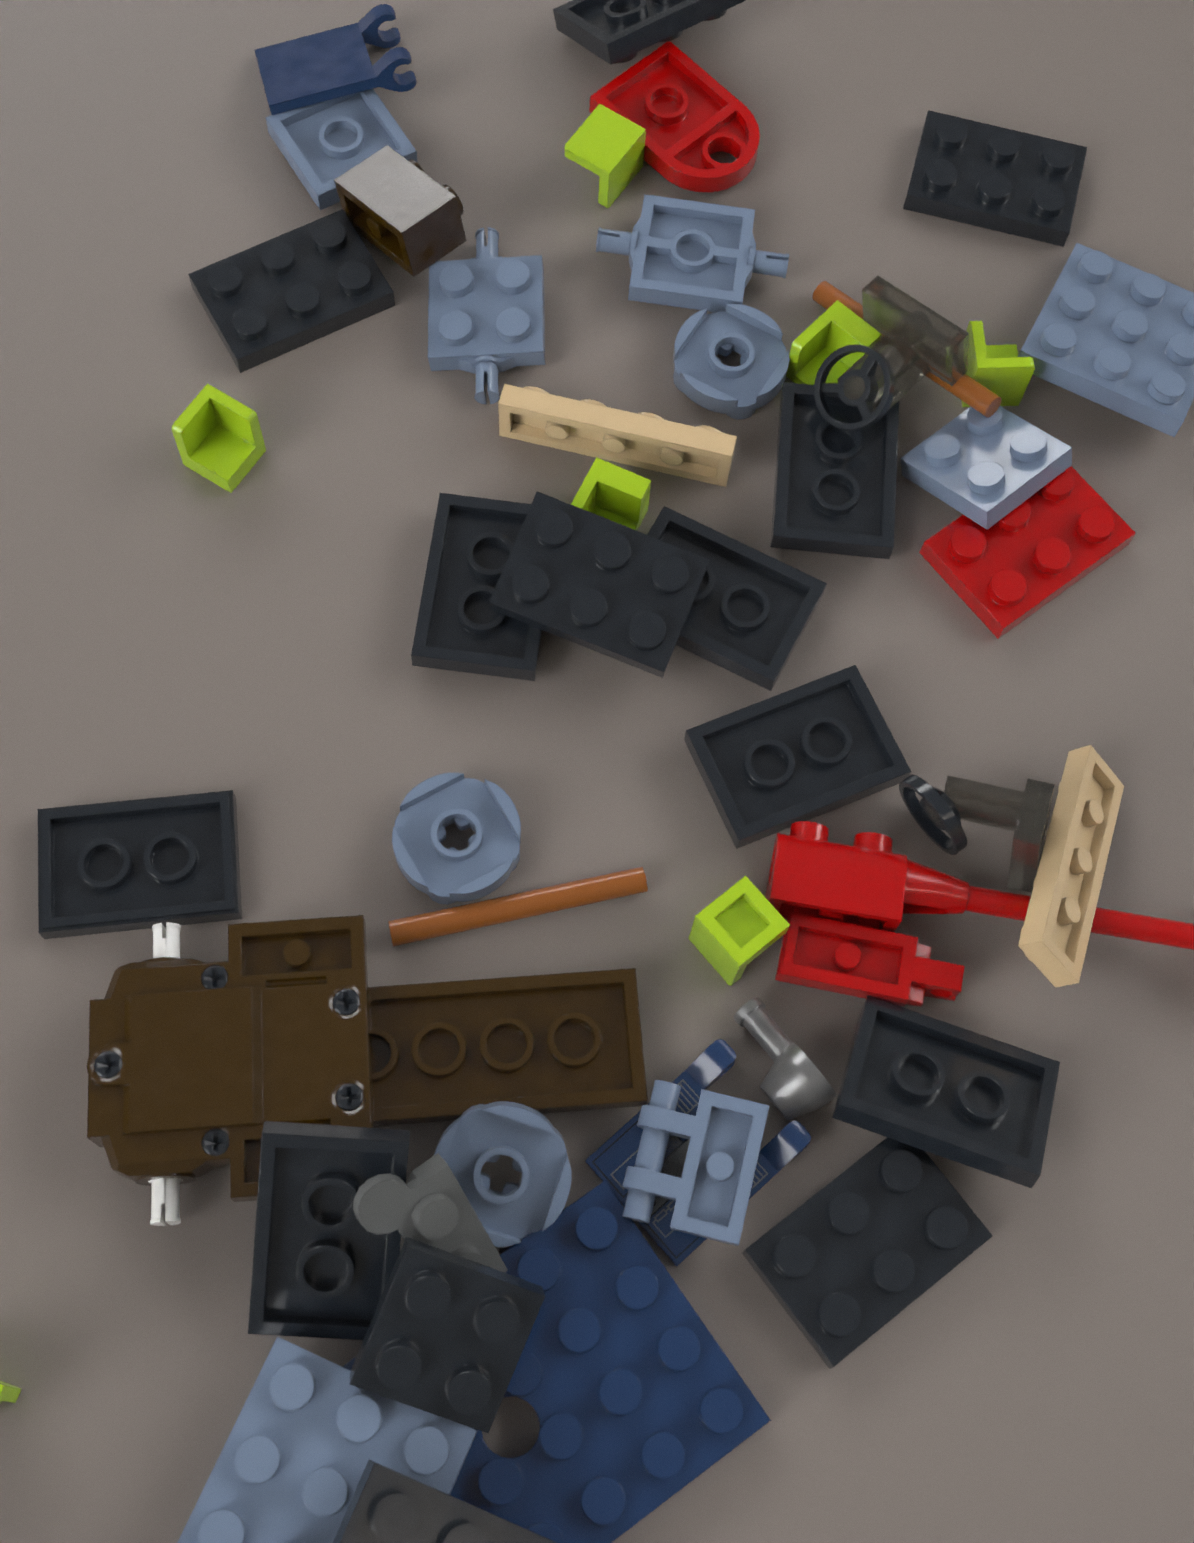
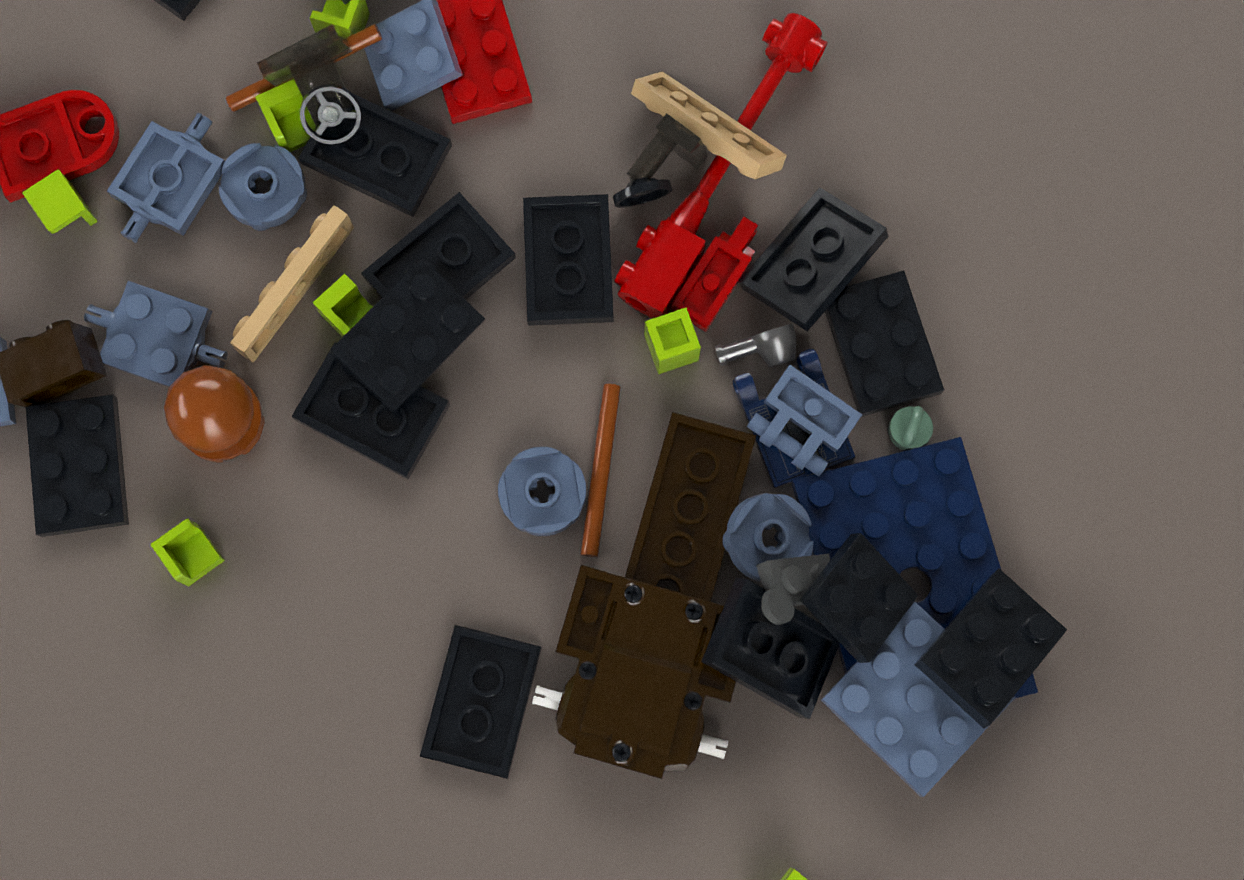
camera: 65 degrees left, 10 degrees up
(407, 400) = (214, 413): none -> dark orange tile
(753, 1335) = (910, 428): none -> sand green tile

